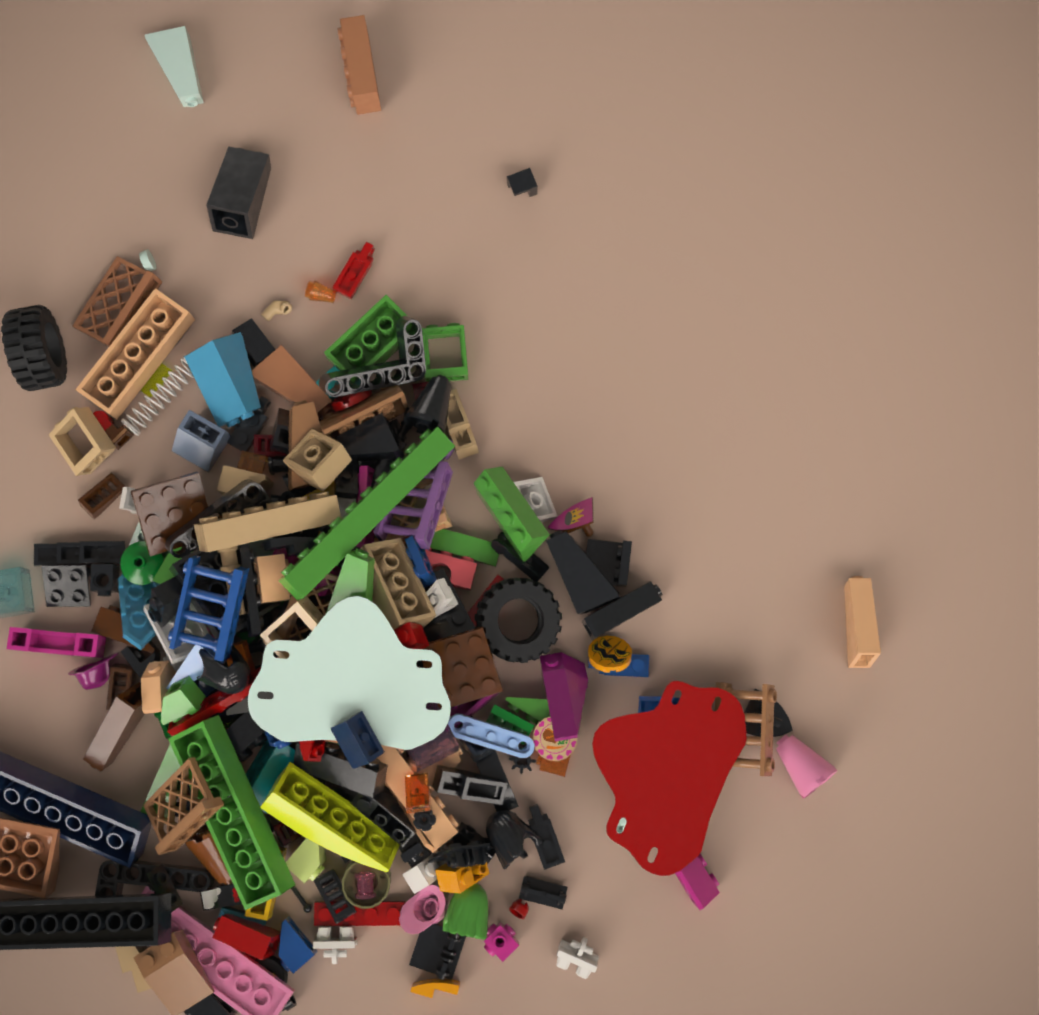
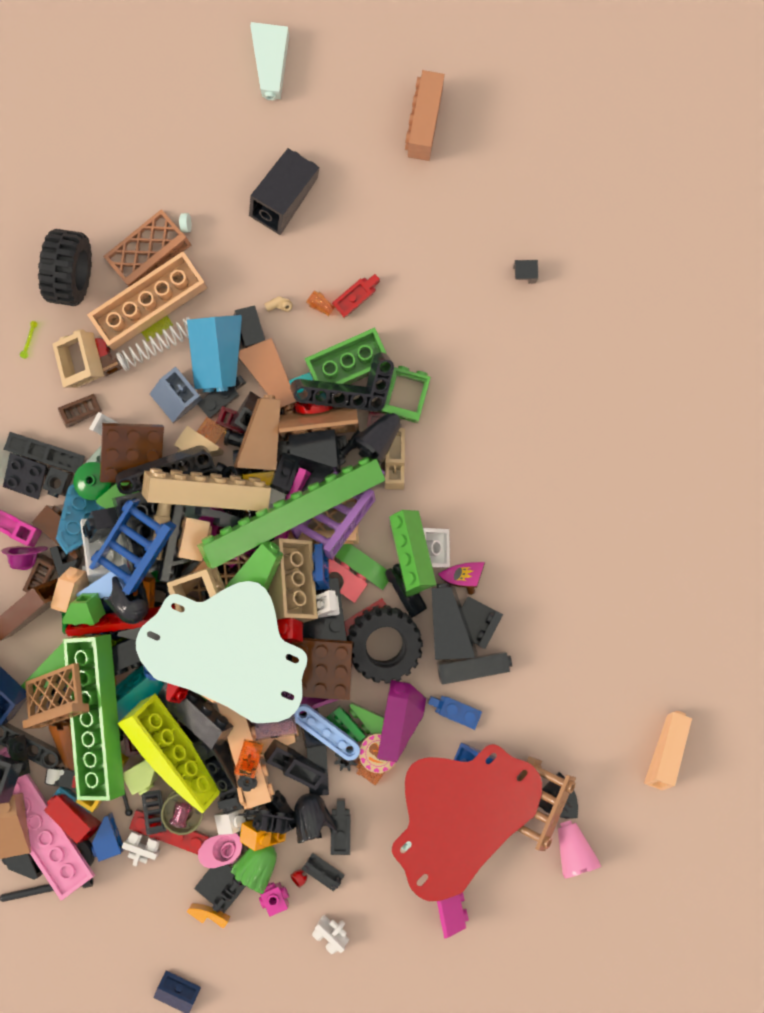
camera: 20 degrees right, 5 degrees up
(21, 458) = (23, 354): none -> clear neon green hinge
(318, 459) = (266, 451): tan slope -> none
(357, 740) = (215, 701): dark blue panel -> none
(609, 654) = (449, 700): light orange tile -> none

